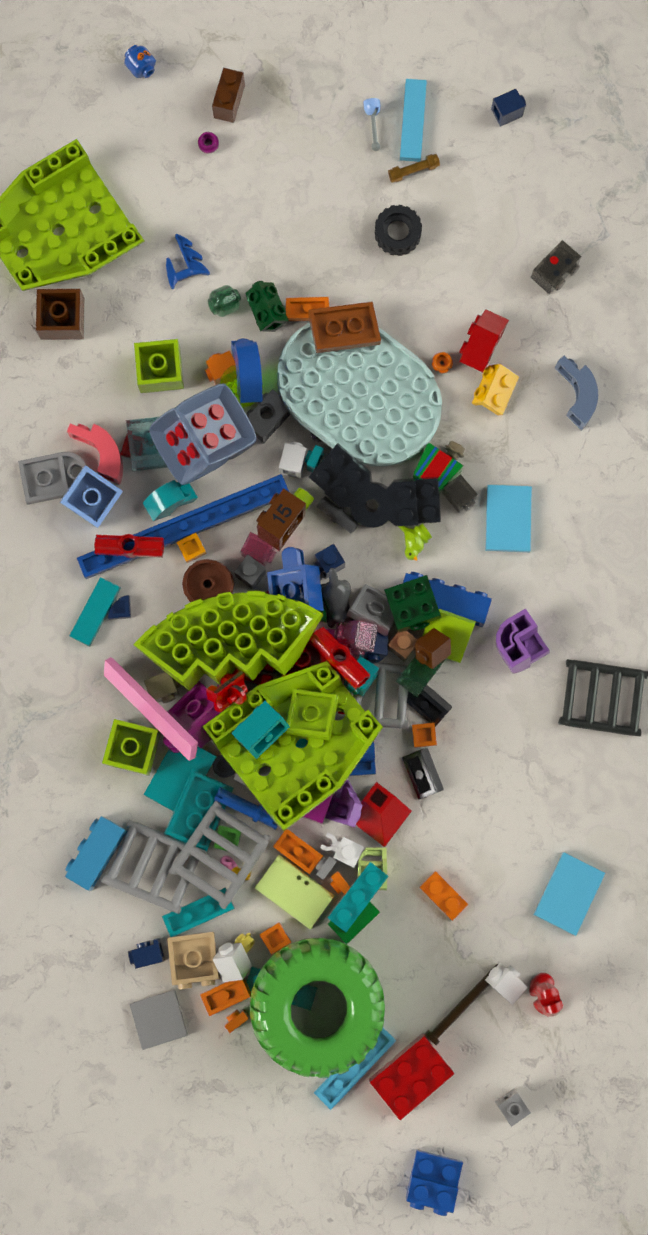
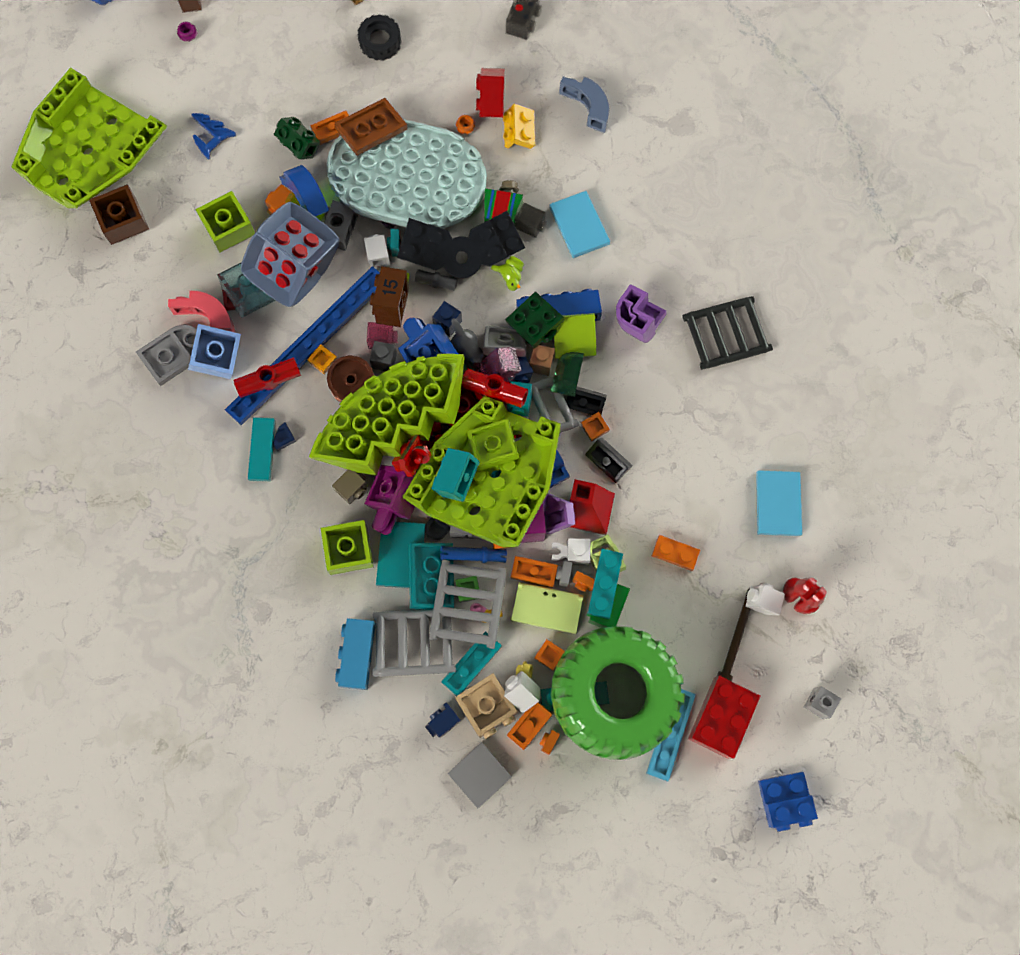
camera: 30 degrees left, 5 degrees down
(150, 709) = (349, 505): bright pink tile -> none
(167, 498) = (283, 325): teal brick -> none
(224, 301) = (258, 148): clear green head -> none
(433, 648) = (569, 348): reddish brown brick -> none

